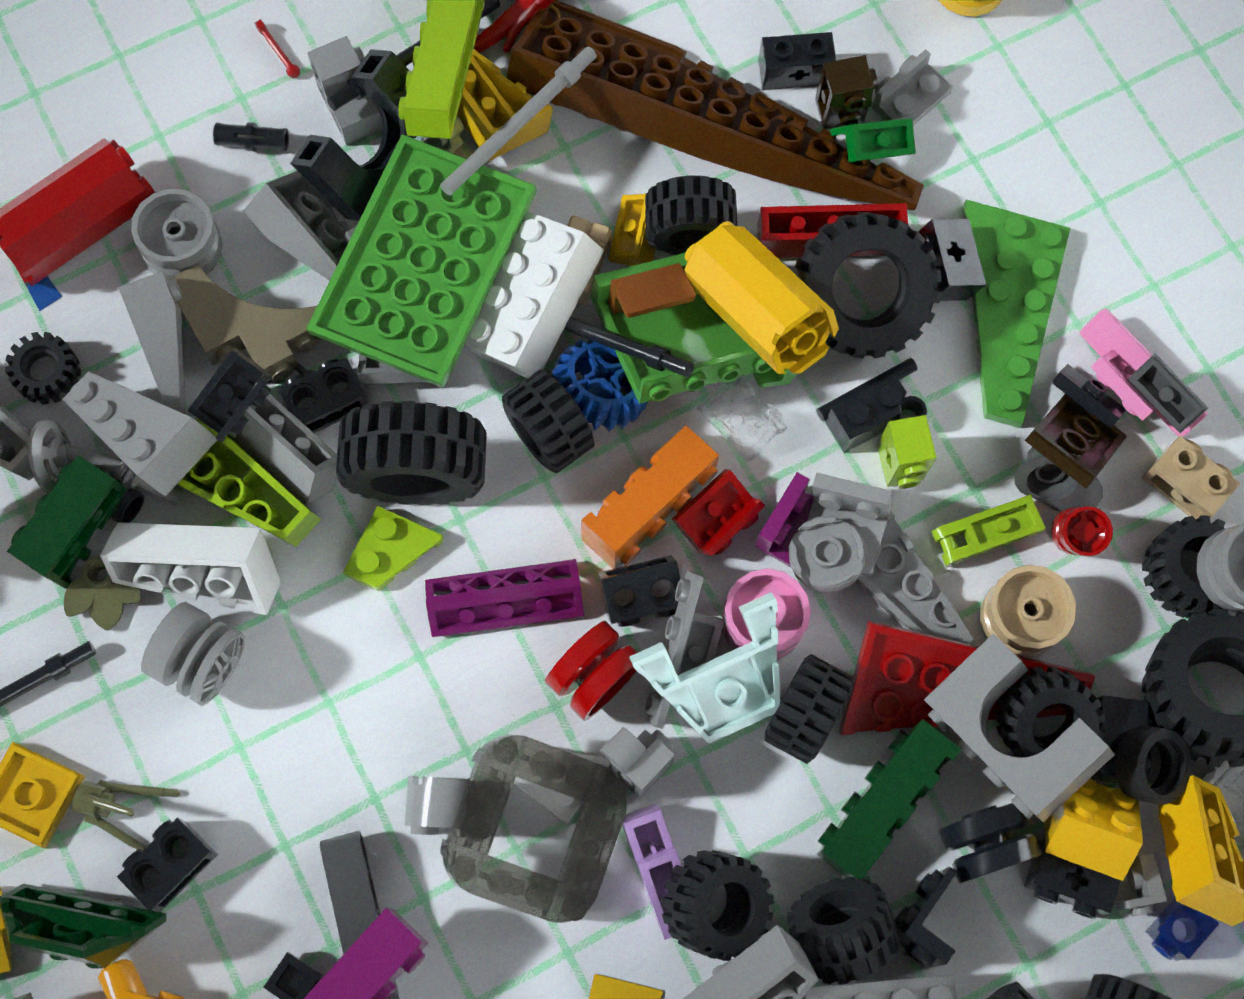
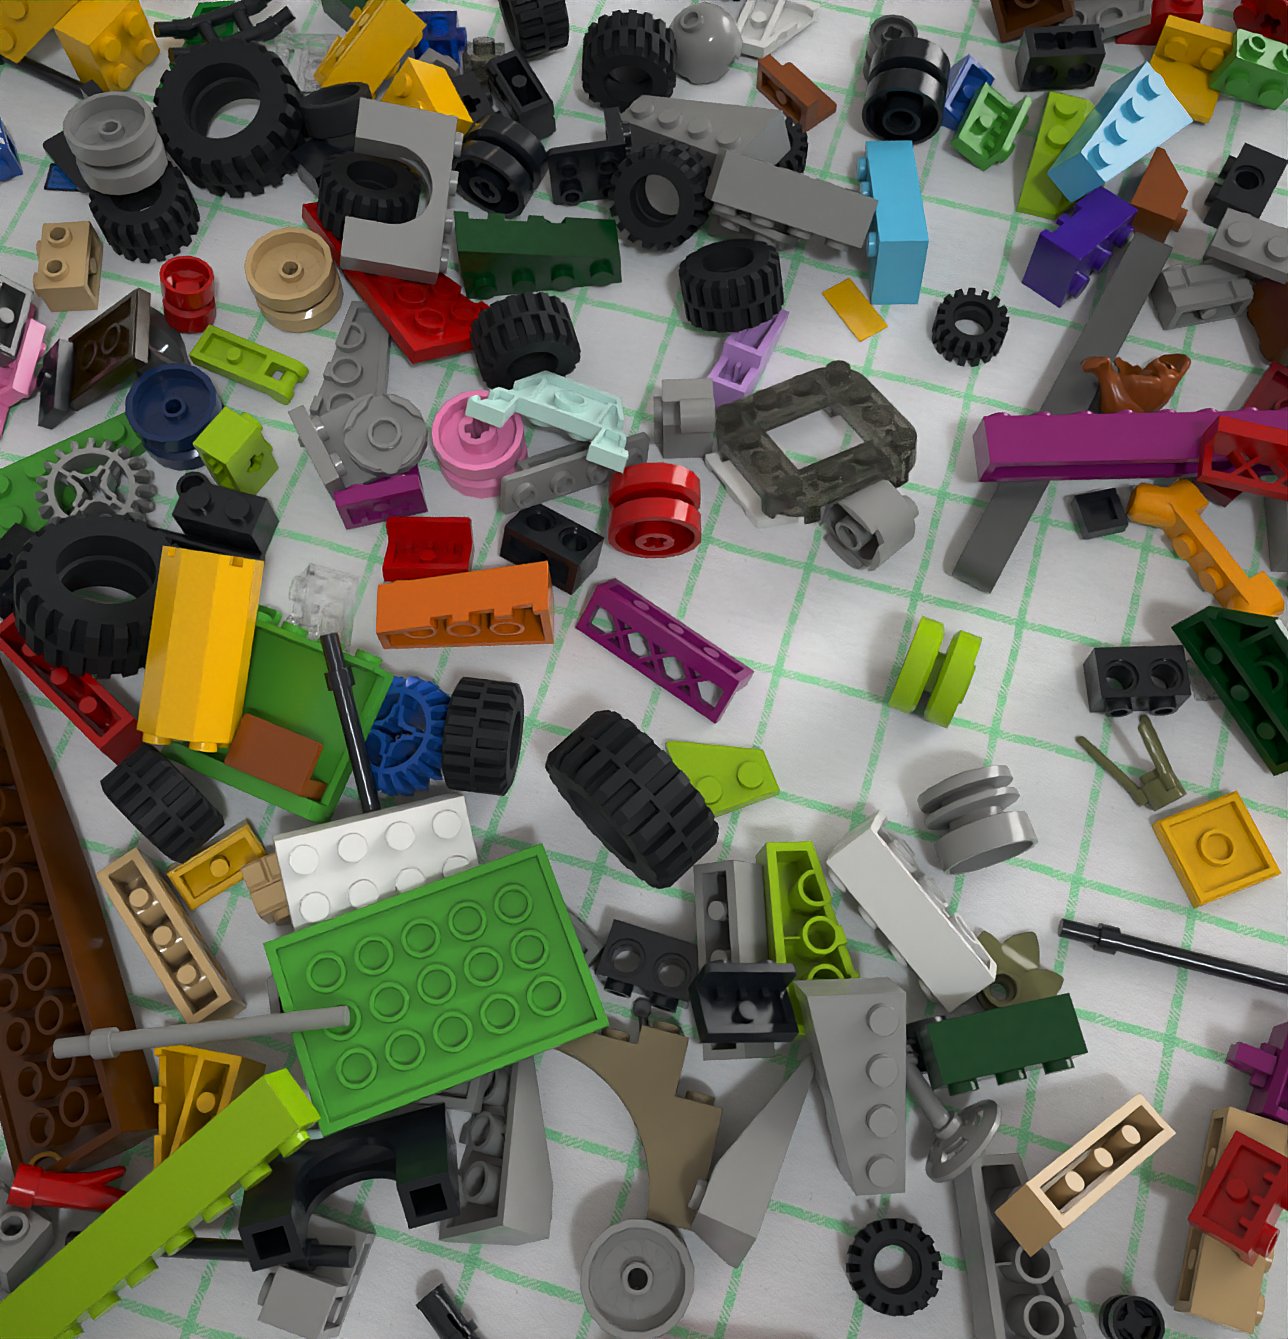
camera: 130 degrees left, 5 degrees down
(296, 732) = (939, 673): none -> lime wheel
(602, 160) = (169, 939): none -> tan brick
(978, 342) = (110, 465): none -> light grey gear
(978, 444) = (169, 412): none -> dark blue wheel
(1052, 929) = (521, 93): none -> black brick
(1123, 943) = (478, 54): none -> clear smoke bracket

